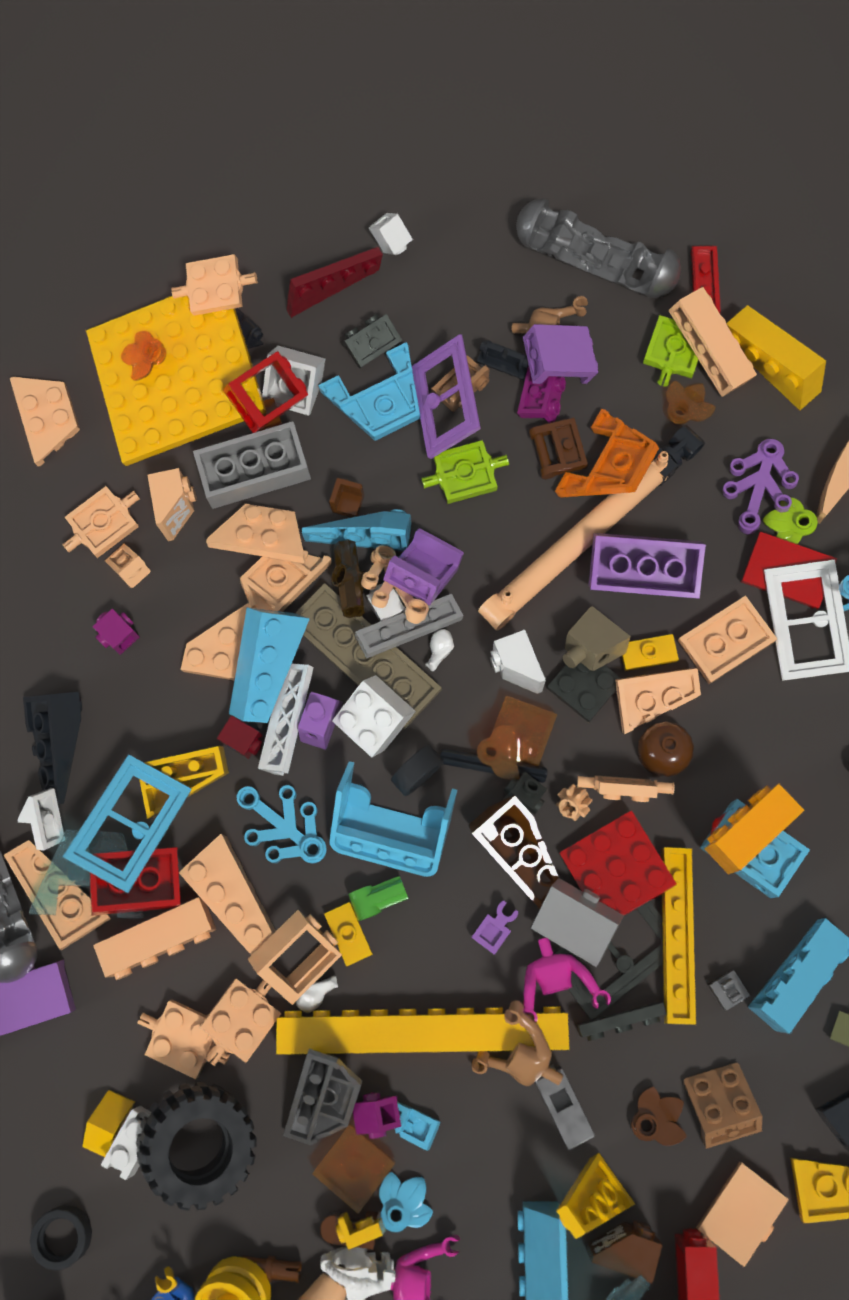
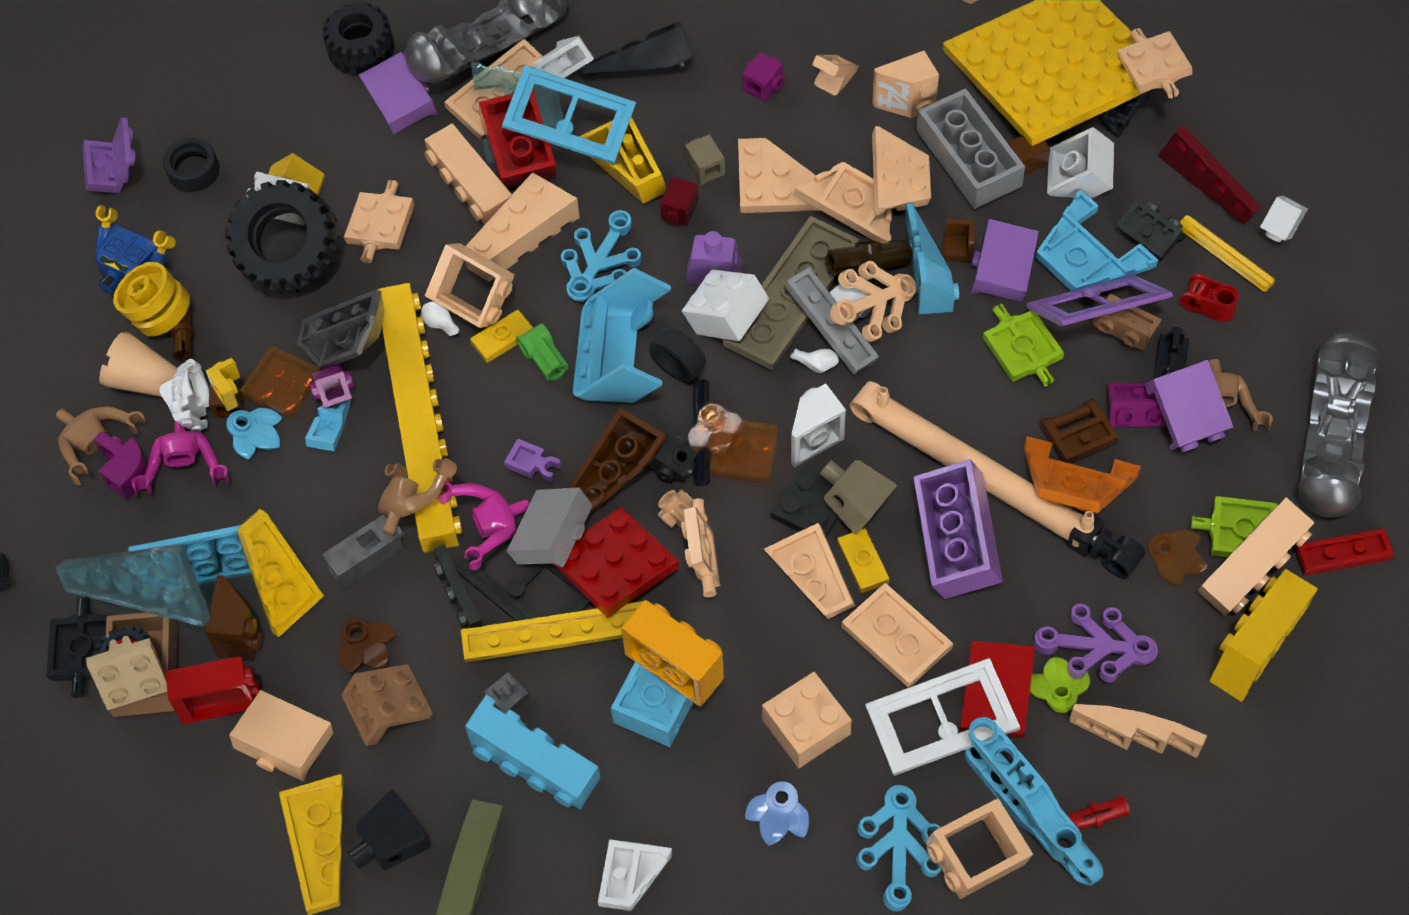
camera: 75 degrees right, 15 degrees down
(101, 522) = (873, 39): light nougat plate -> none
(143, 355) = (1060, 26): clear orange plate -> none
(196, 704) = (704, 159): none -> dark tan brick
(239, 1021) = (401, 256): light nougat plate -> none
(245, 405) = (1023, 115): red window -> none
(264, 661) = (767, 196): medium azure wedge -> none
(285, 720) = (680, 233): white fence -> none
(375, 465) = (1004, 260): none -> medium lavender container
(408, 289) = (1227, 253): none -> yellow axle
(424, 567) = (897, 320): medium lavender panel -> none
(448, 315) = (1210, 298): none -> red piece
(665, 749) = (756, 592): reddish brown cylinder -> none
(799, 730) = (806, 719): none -> light nougat brick

